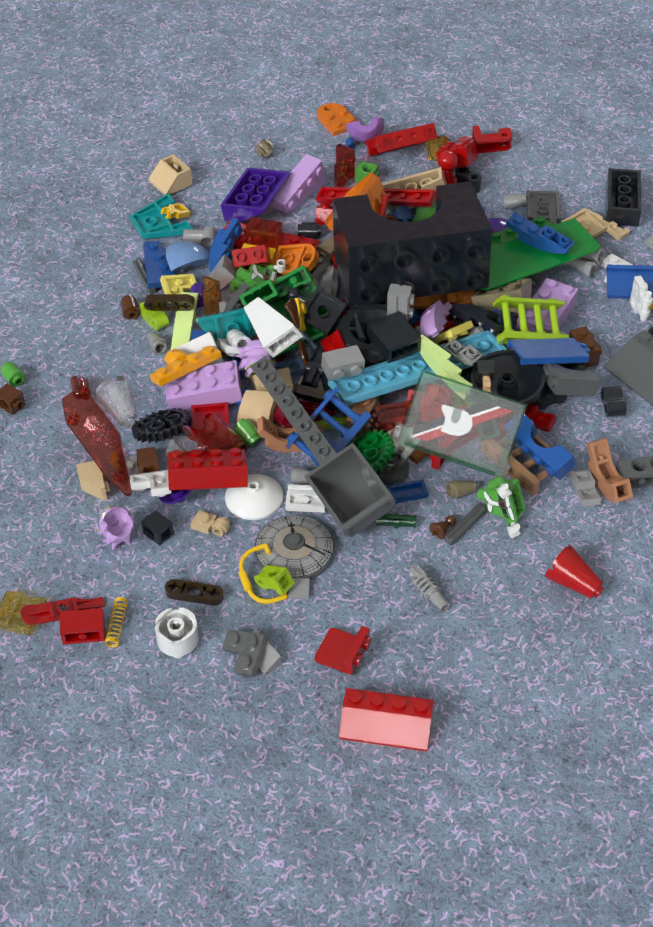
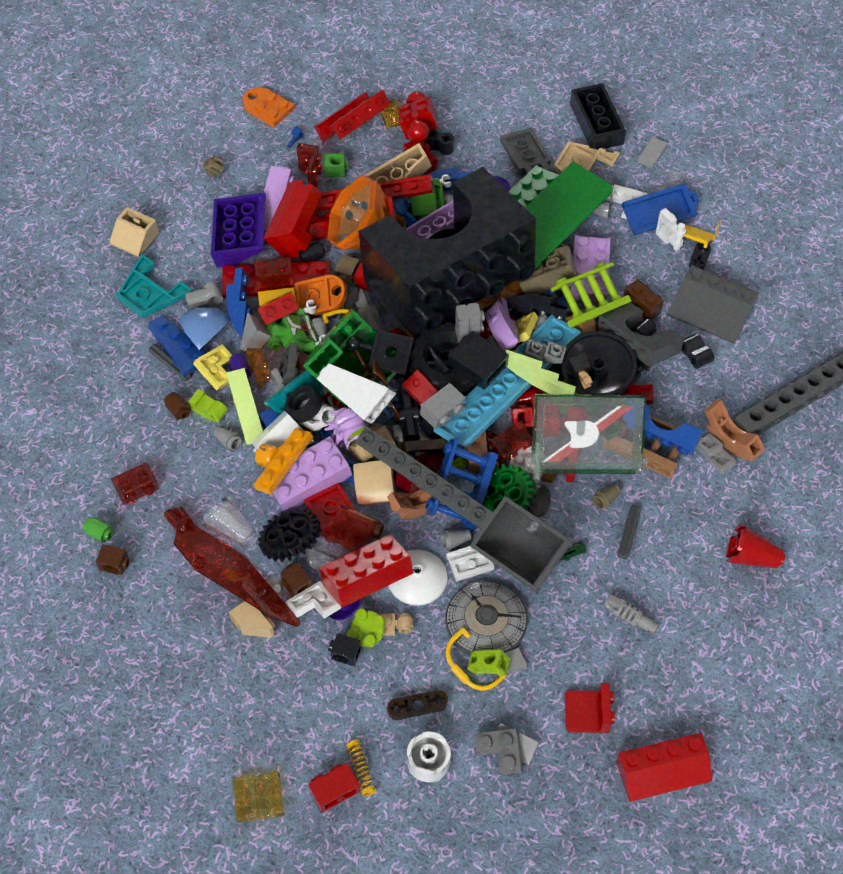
camera: 25 degrees left, 10 degrees up
(50, 611) = (292, 784): red piece -> none
(61, 351) = (135, 484): none -> clear red brick
(116, 525) = (309, 666): lavender hair -> none
(176, 210) = (162, 272): yellow plate -> none
(179, 302) = (223, 391): dark brown beam -> none
(186, 517) = (367, 627): none -> lime piece
(228, 329) = (310, 409): none -> black tyre
(247, 431) = (377, 509): bright green brick -> none
(301, 311) = (367, 356): yellow plate -> none
(303, 197) = (291, 222): none -> red brick
(363, 133) = (310, 114): medium lavender cylinder -> none
(408, 491) = (560, 515): clear blue tile -> none
(440, 528) = (609, 545): reddish brown piece -> none
(492, 142) = (438, 88): red piece -> none
(504, 500) = (657, 496): bright green torso -> none
(515, 200) = (495, 153): light grey cone -> none
(540, 238) = (558, 196): blue slope -> none
(550, 351) = (624, 321): blue piece -> none

